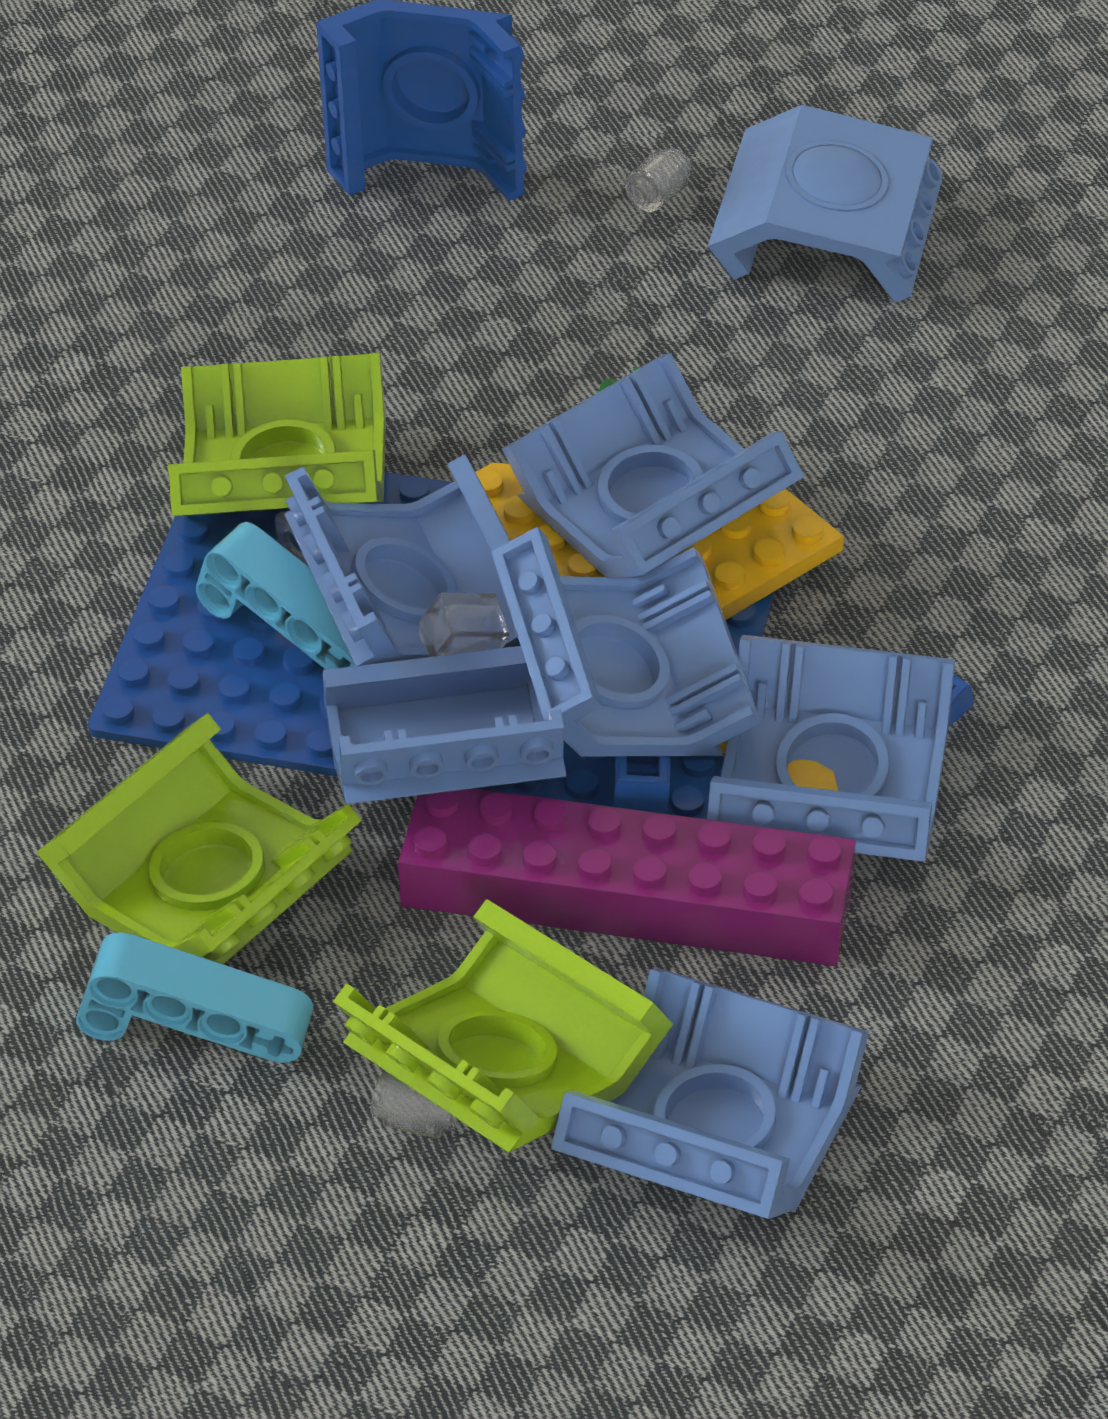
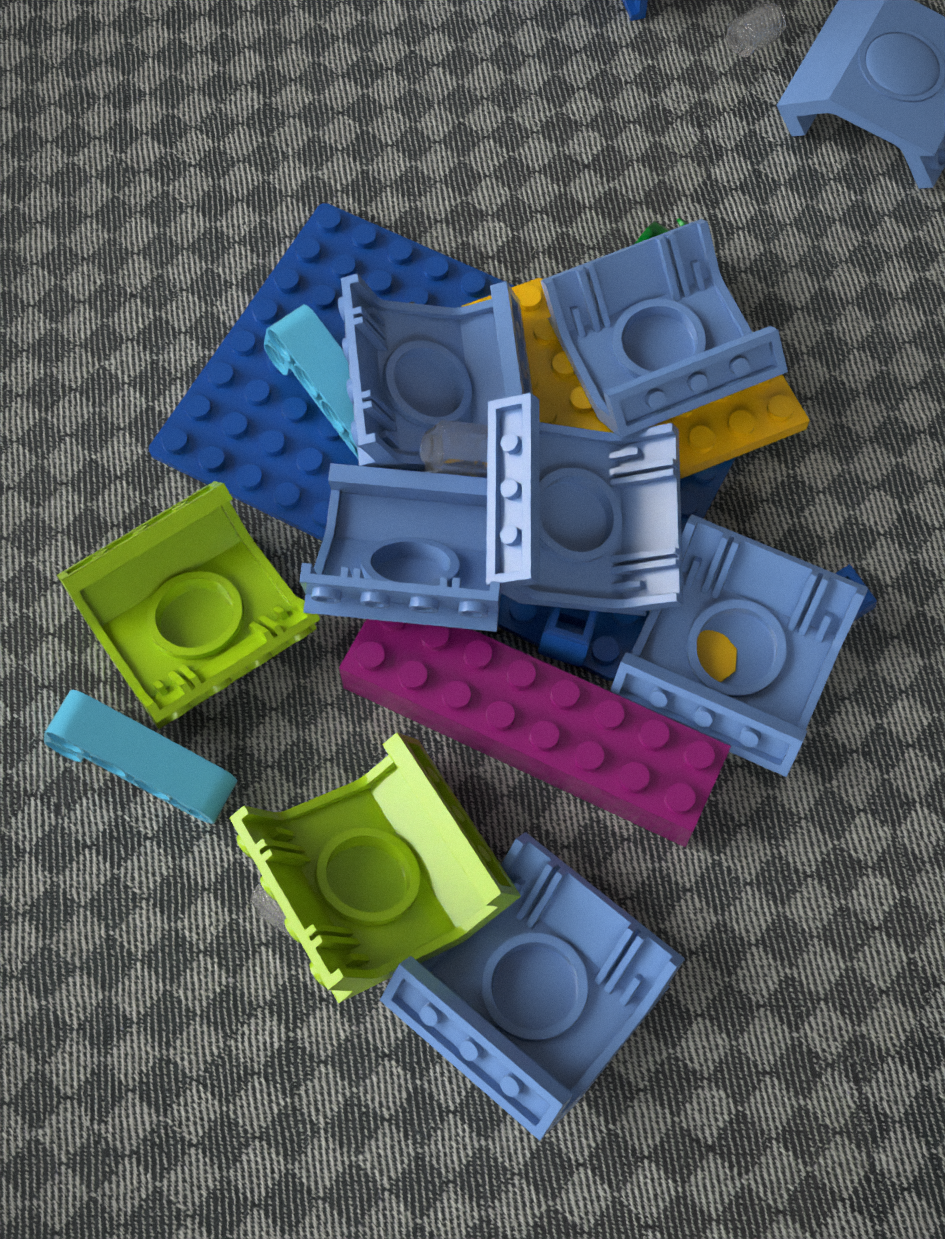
camera: 15 degrees right, 20 degrees up
(272, 417) = (373, 214): lime panel -> none

